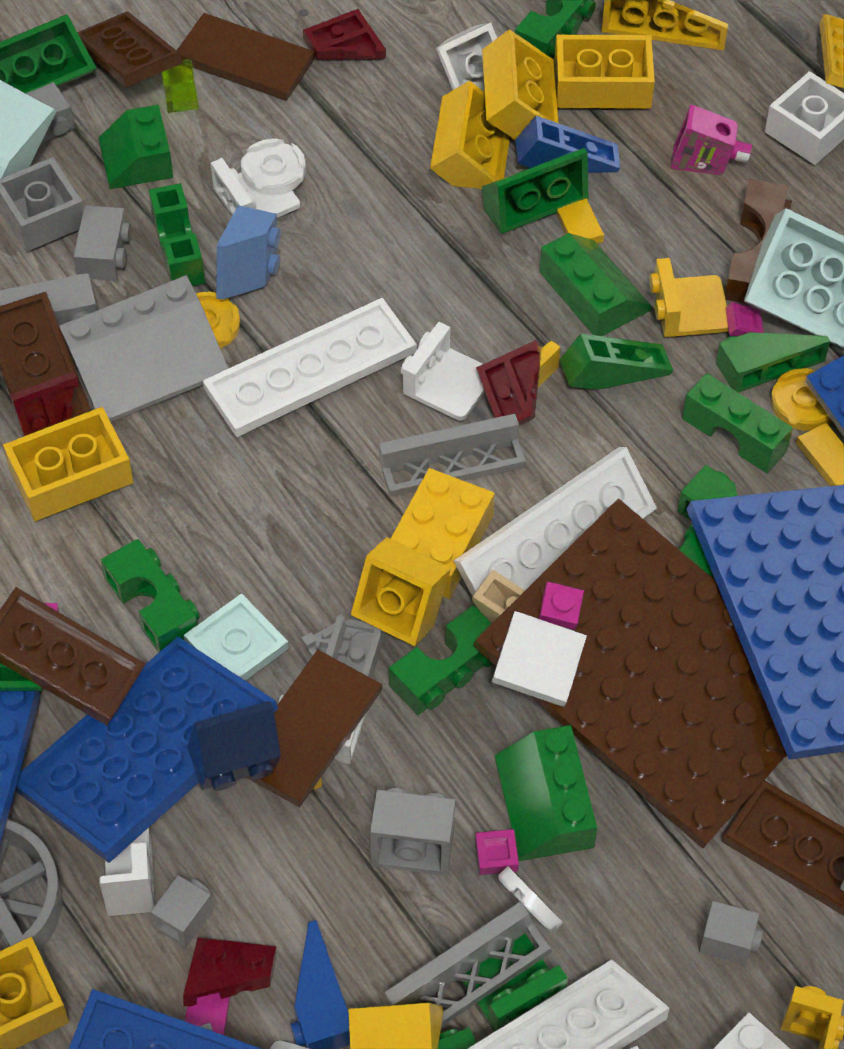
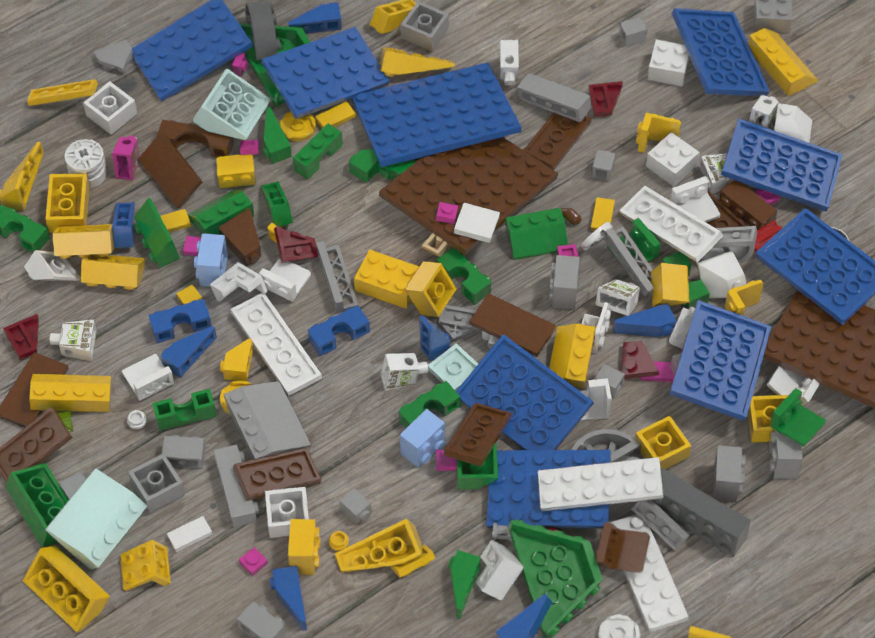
camera: 90 degrees left, 0 degrees up
(44, 403) = (316, 461): dark red wing -> none
(68, 463) = (347, 450): yellow brick -> none
(72, 574) = (422, 438): none -> light blue brick
(136, 148) = (109, 439): green slope -> none
(176, 176) = (136, 419): none -> white plate
(229, 91) = (70, 392): none -> yellow slope
(229, 547) = (401, 370): none -> white torso
(235, 746) = (536, 342): dark blue slope -> none
(239, 843) = (573, 353): none -> yellow slope
(247, 252) = (201, 370): medium blue slope -> none
(272, 312) = (238, 362): none -> yellow slope
(273, 167) = (129, 366): white tile -> none
(287, 589) = (432, 339): none -> blue slope
(303, 244) = (185, 352): none -> blue slope
(303, 889) = (602, 325): none -> white bracket
(320, 434) = (350, 321): none -> blue arch
(331, 101) = (76, 339): none -> white torso
(357, 210) = (192, 313): none -> blue arch
(377, 936) = (620, 296): none -> white torso
(417, 247) = (188, 294): none -> yellow tile
(431, 299) = (237, 277): none -> white panel
(476, 262) = (211, 258): none -> light blue brick
(525, 251) = (190, 246): none -> dark pink tile
(540, 312) = (242, 237): none -> reddish brown slope
(551, 526) = (391, 227): white plate -> none
(590, 866) = (571, 215): none -> reddish brown arm
(603, 928) = (602, 212): none -> yellow tile
(680, 205) = (170, 170): none -> reddish brown tile
(683, 79) = (87, 158): none -> white wheel

